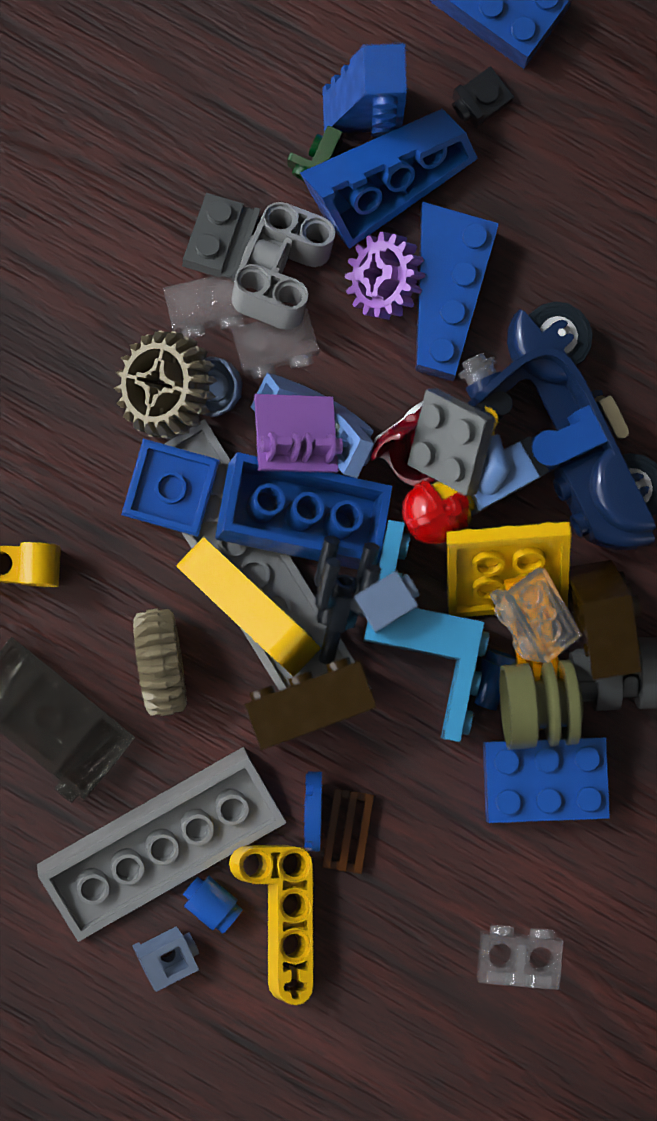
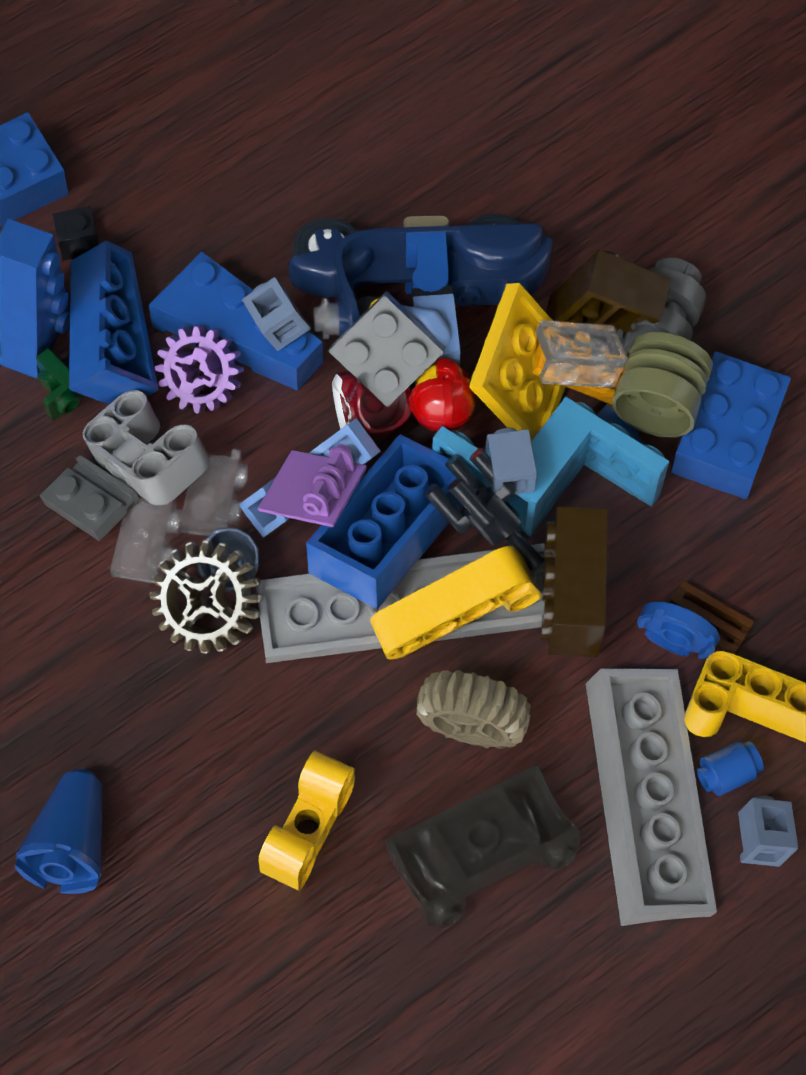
camera: 70 degrees left, 20 degrees down
(170, 487) = (307, 635): blue tile -> none
(447, 310) = (275, 314): none -> sand blue brick

